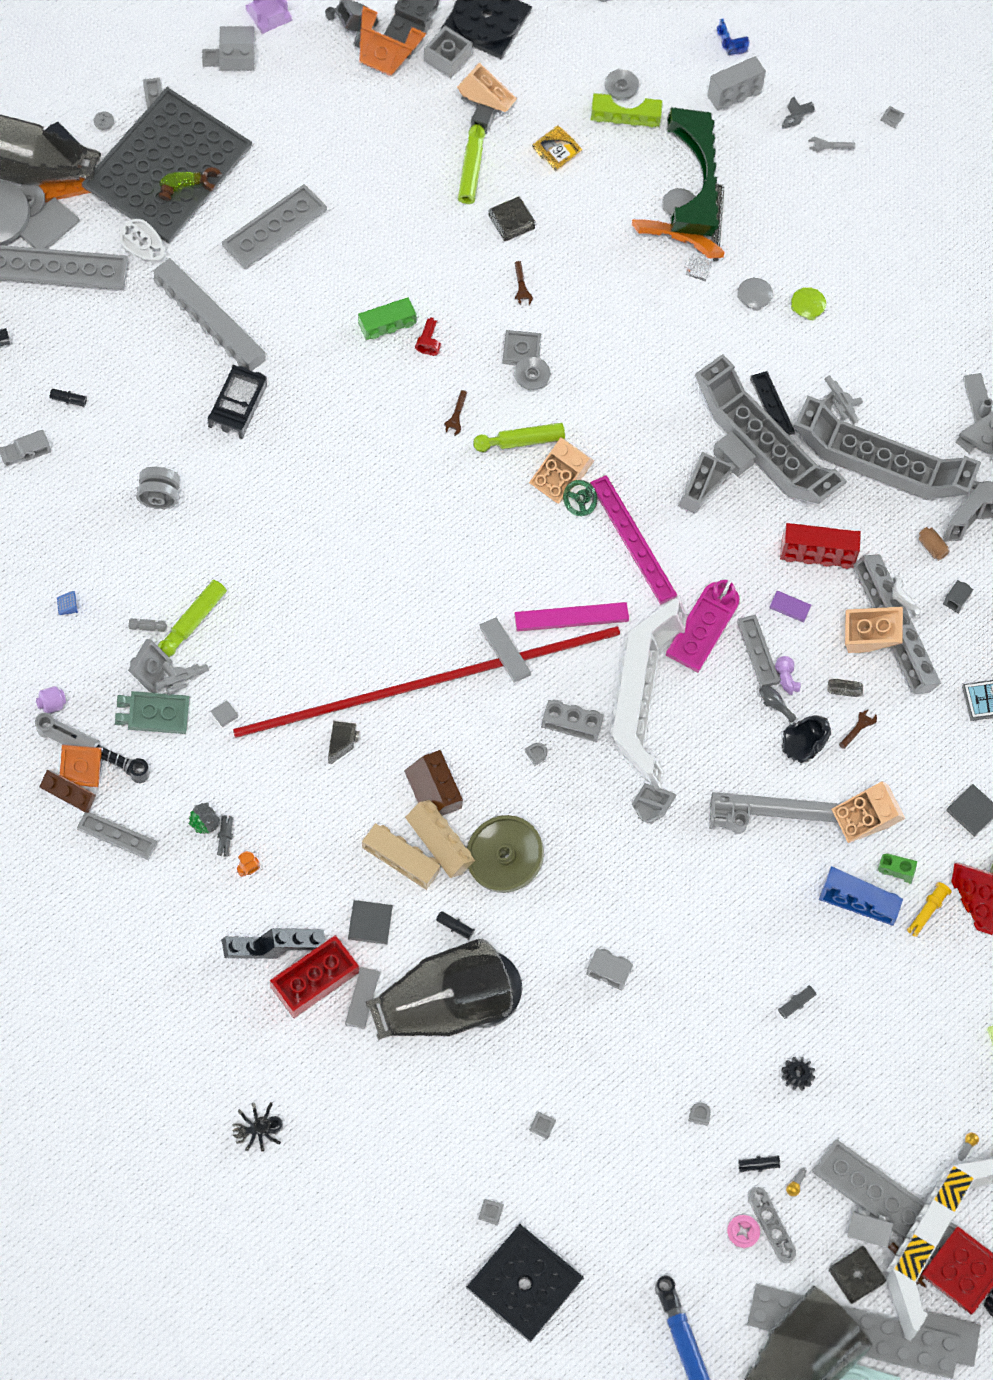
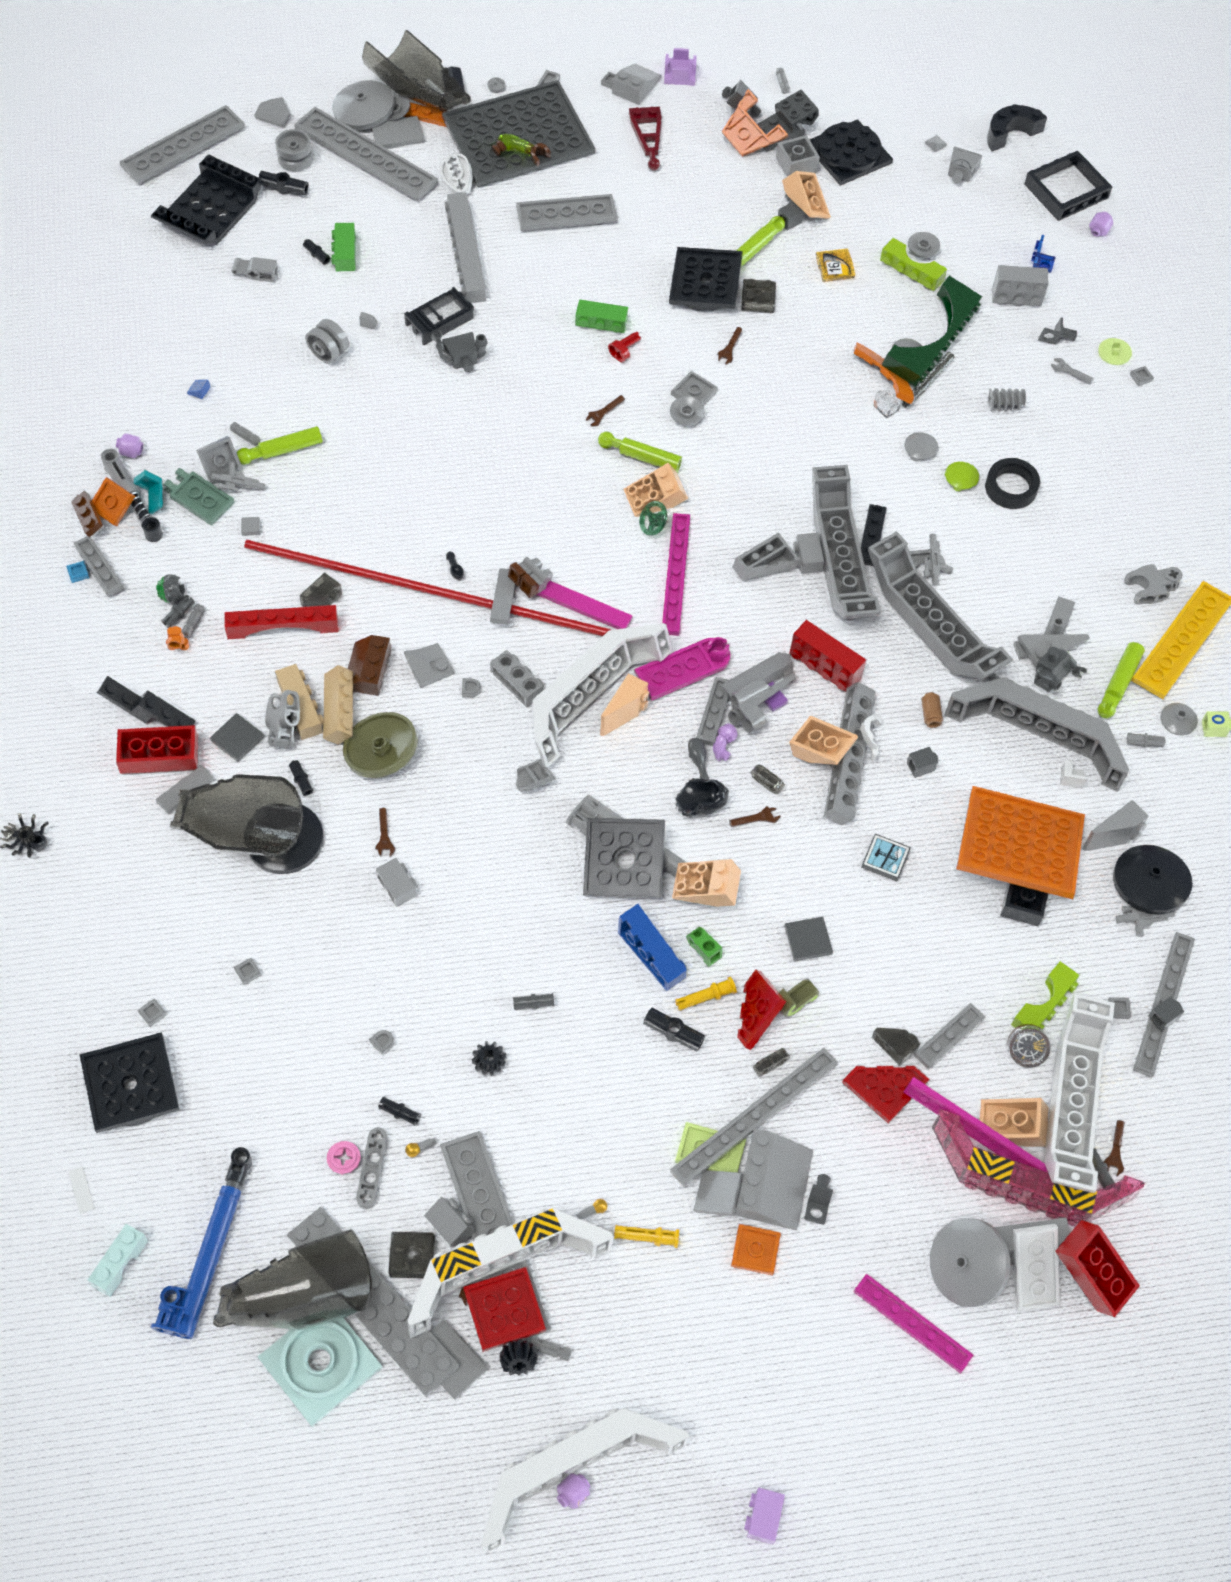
camera: 35 degrees right, 5 degrees down
(93, 378) = (344, 247): none -> bright green brick
(100, 852) = (77, 571): none -> dark azure tile
(110, 731) = (154, 486): none -> teal bracket
(175, 444) = (367, 320): none -> light grey tile
(244, 834) = (193, 620): none -> light grey axle
(273, 78) = (647, 115): none -> dark red plate
(286, 425) = (461, 350): none -> dark grey torso
(301, 808) = (243, 623): none -> red arch
(404, 882) = (282, 719): none -> light grey piece
(441, 648) = (455, 570): none -> black piece
(456, 209) = (701, 264): none -> black piece
(486, 753) = (428, 664): none -> light grey plate
(516, 615) = (530, 576): none -> hips
(570, 939) = (384, 842): none -> reddish brown piece
(684, 681) = (625, 704): none -> light nougat slope
(780, 615) = (752, 689): none -> light grey panel
(798, 204) = (1006, 398): none -> light grey piece
(810, 838) = (606, 840): none -> piece
(851, 305) = (1006, 499): none -> black tyre
(853, 104) = (1114, 351): none -> yellowish green piece
(913, 955) = (663, 1023): none -> black piece

